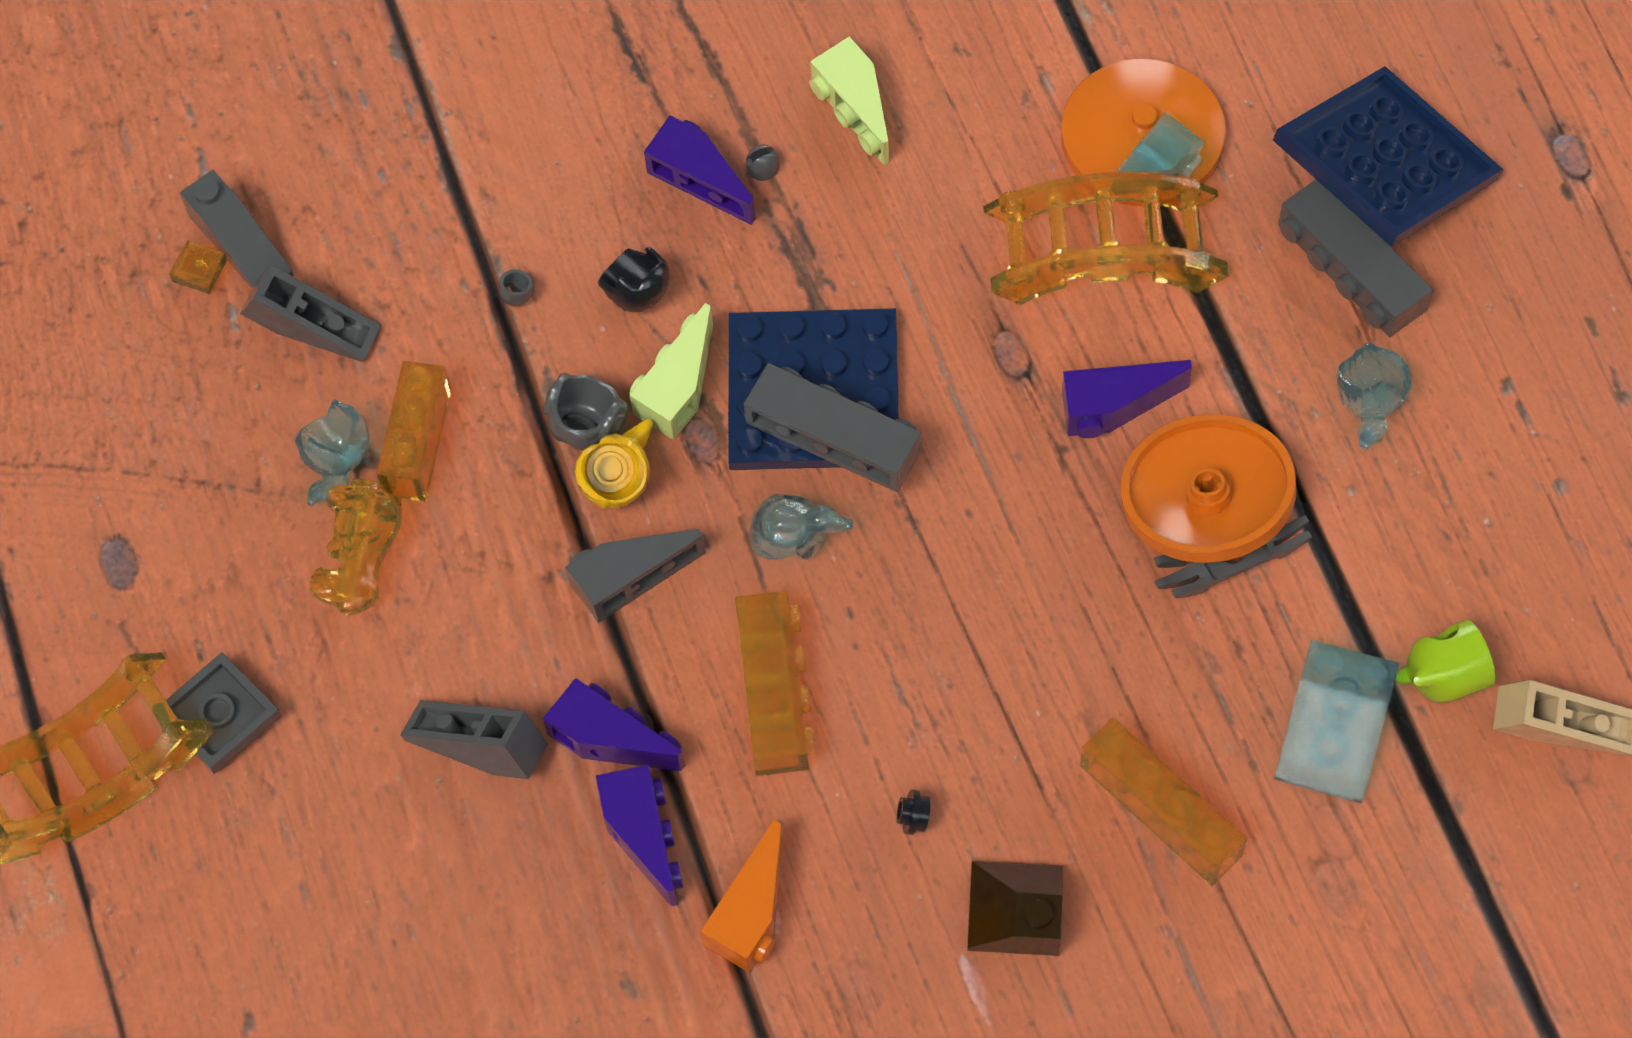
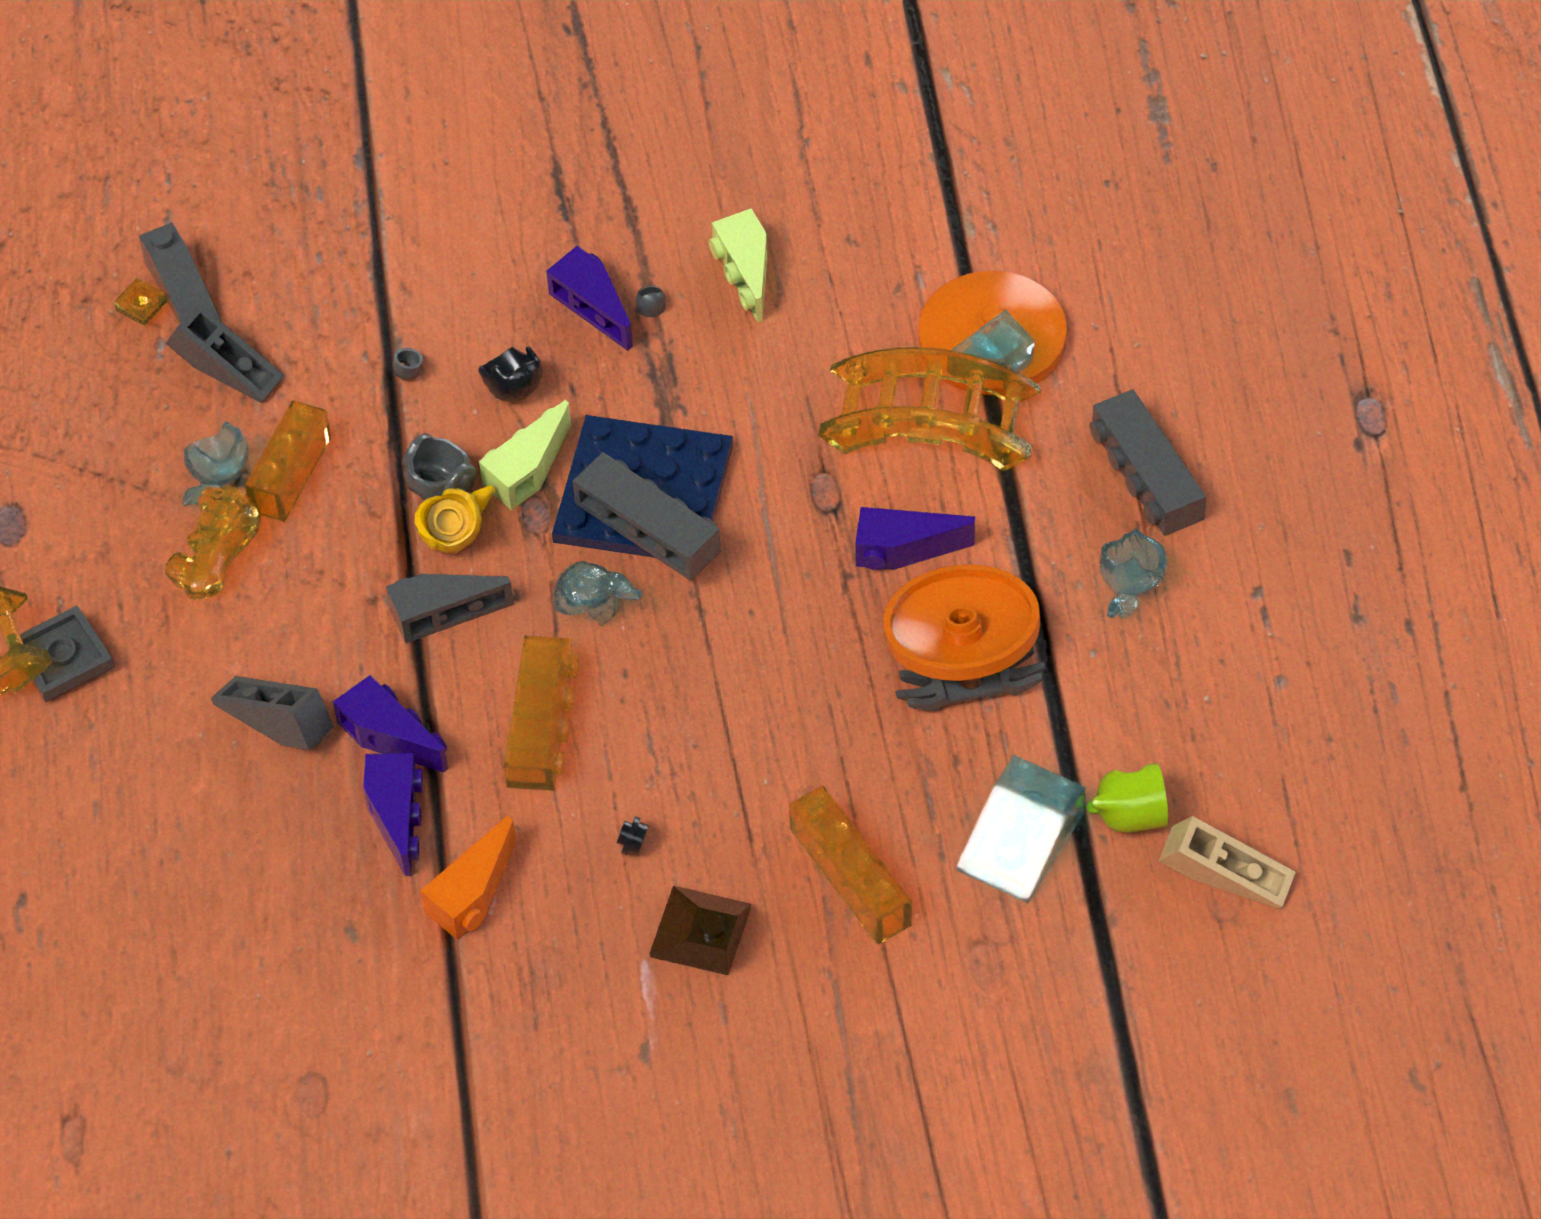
camera: 10 degrees right, 10 degrees down
(1387, 155) = (1199, 383): dark blue plate -> none

